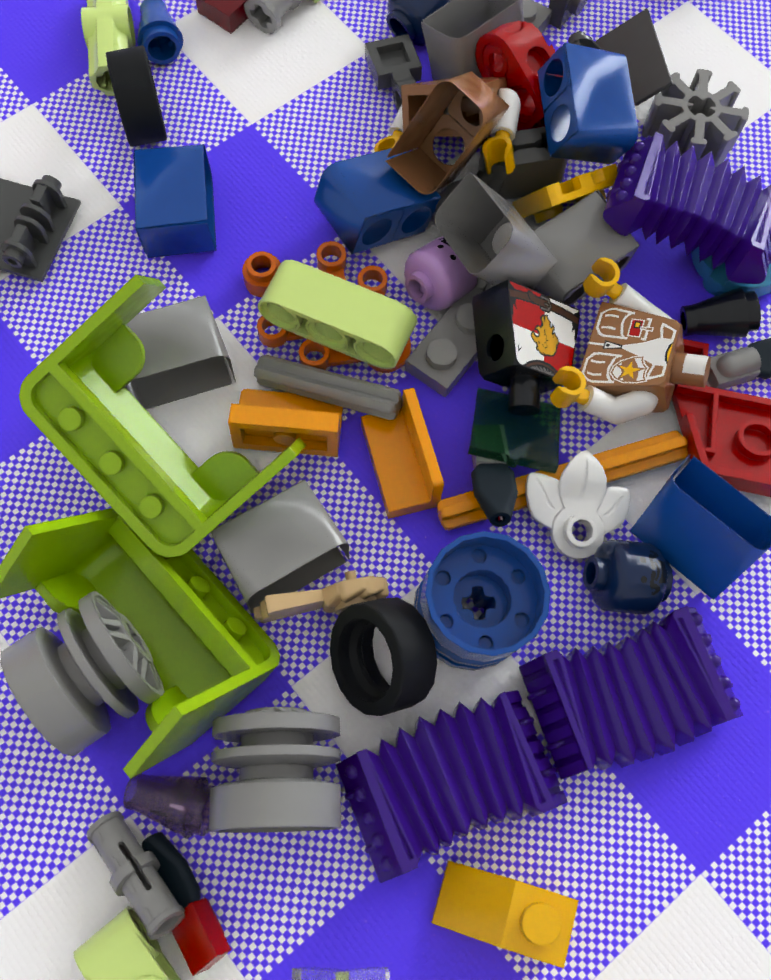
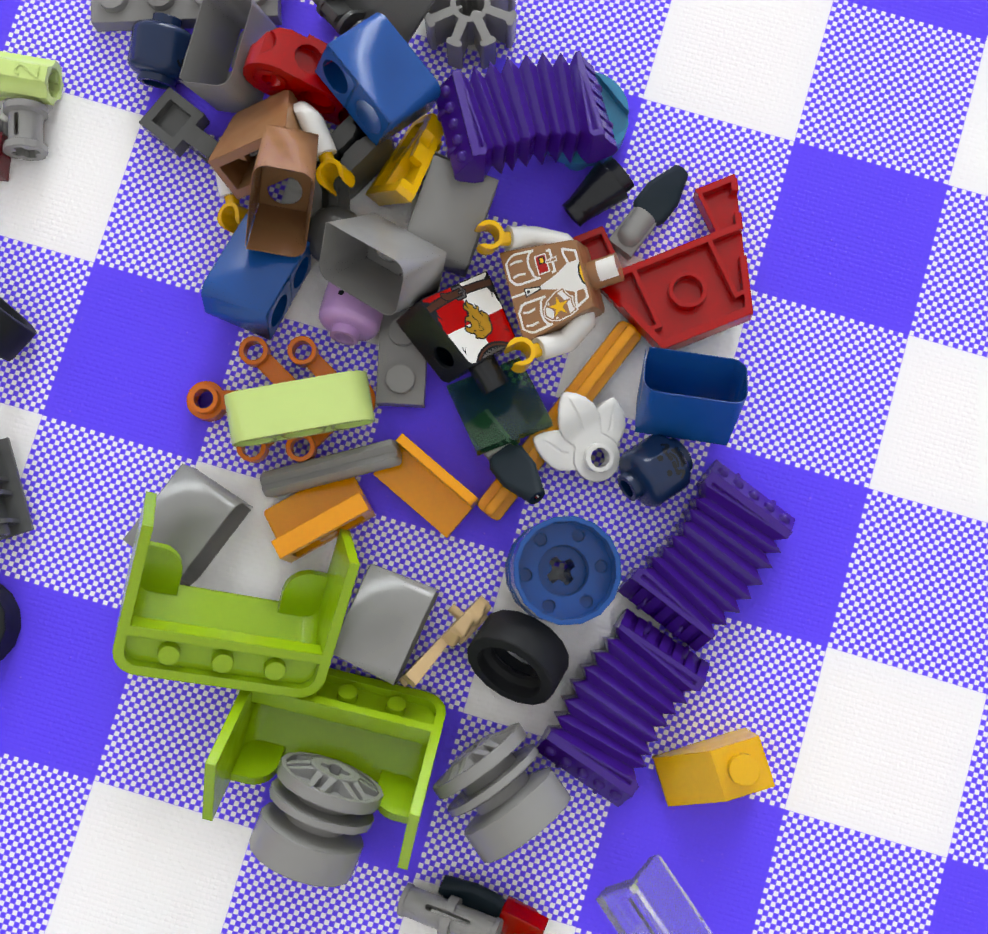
camera: 30 degrees left, 15 degrees up
(171, 801) = (442, 852): clear purple cone -> none
(174, 200) = (88, 387): blue piece -> none

